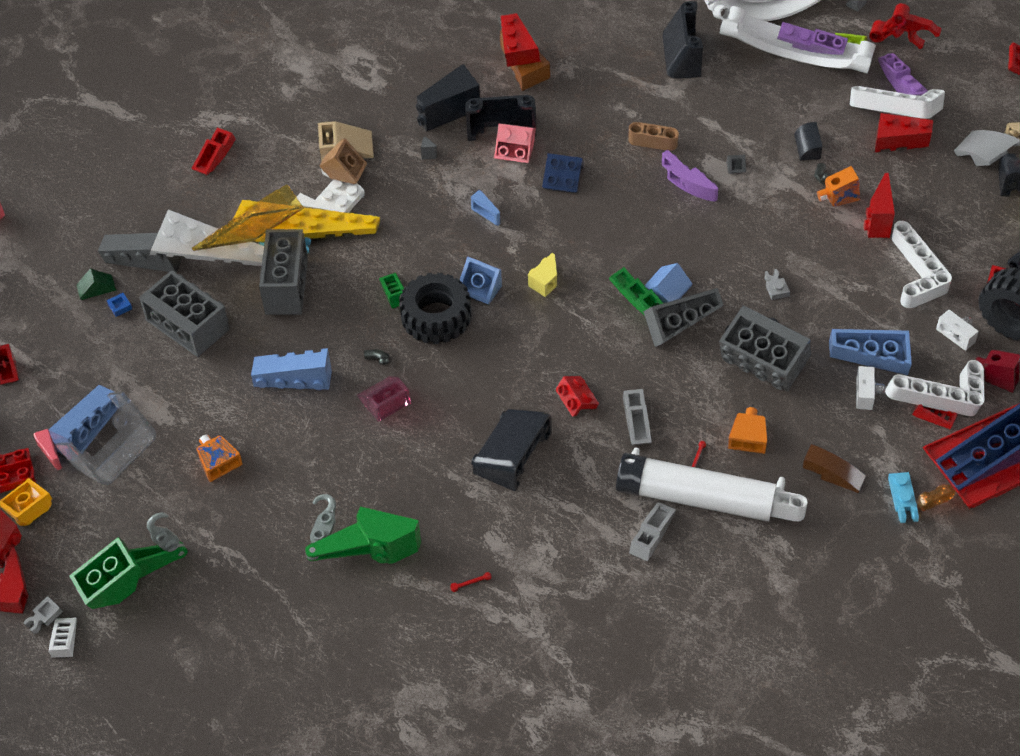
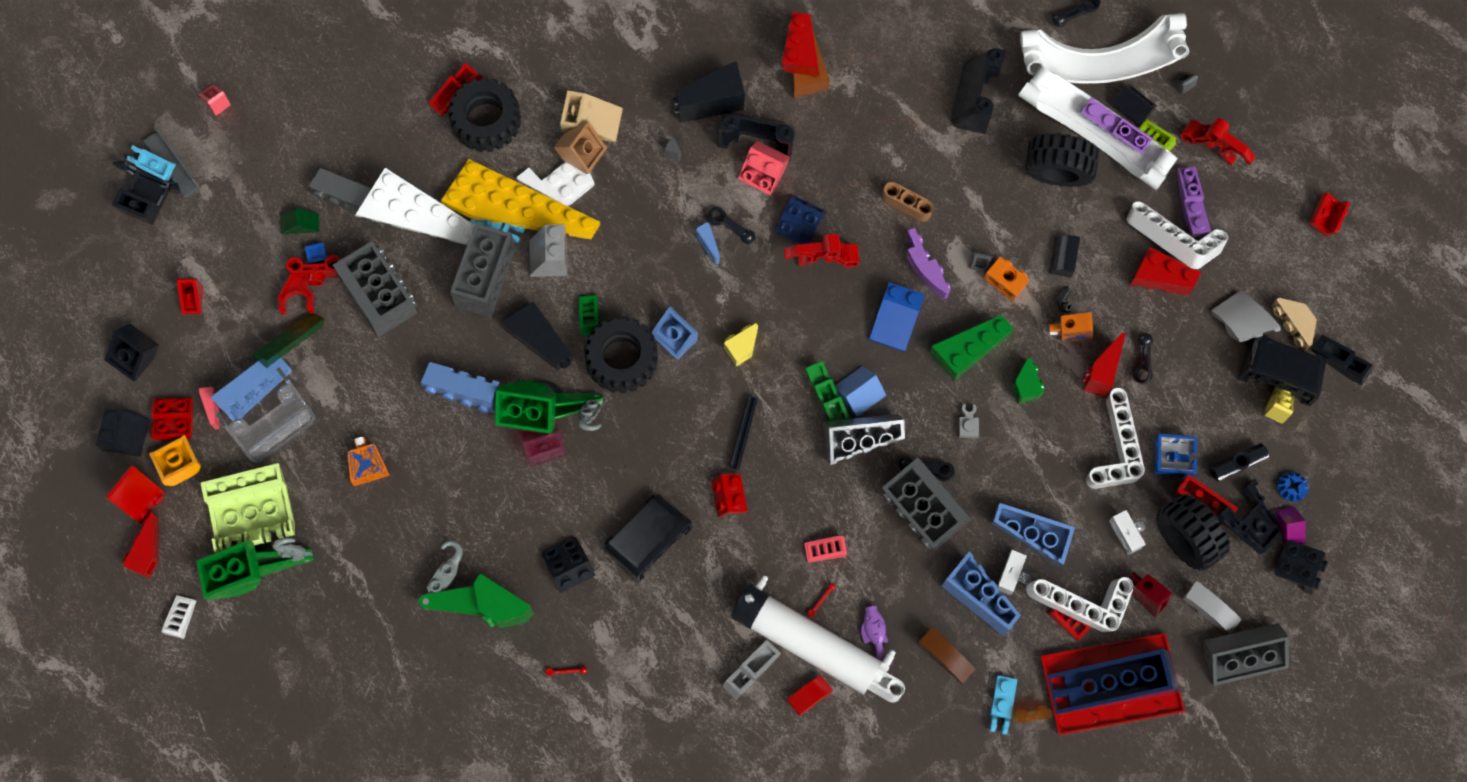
camera: 10 degrees right, 20 degrees up
(45, 613) = (168, 588): light grey plate -> none
(107, 513) = (249, 507): none -> yellowish green slope
(113, 373) = (289, 339): none -> dark green slope
(114, 323) = (304, 276): none -> red piece
(248, 177) = (482, 93): none -> black tyre
(255, 220) = (468, 203): clear yellow windscreen -> none
(340, 246) = (549, 252): none -> light grey slope
(351, 315) = (537, 334): none -> black slope
(369, 364) = (535, 407): none -> green slope
(443, 489) = (568, 564): none -> black bracket
(517, 196) = (747, 236): none -> black piece
(571, 342) = (743, 433): none -> black axle
(598, 180) = (830, 249): none -> red piece
(637, 417) = (778, 539): light grey slope -> none
(678, 220) = (896, 317): none -> blue slope
(689, 406) = (832, 540): none -> coral slope
(716, 536) = (809, 695): none -> red slope
(748, 432) = (880, 588): orange torso -> none
(753, 226) = (969, 347): none -> green wedge
(756, 465) = (874, 630): none -> medium lavender animal
(764, 170) = (1011, 288): none -> orange brick
(791, 64) = (1062, 160): none -> black tyre
(817, 241) = (1027, 385): none -> green slope
(820, 21) = (1134, 104): none -> black brick
(846, 411) = (981, 595): none -> medium blue wedge
(907, 186) = (1145, 341): none -> black piece
(970, 260) = (1173, 455): none -> piece

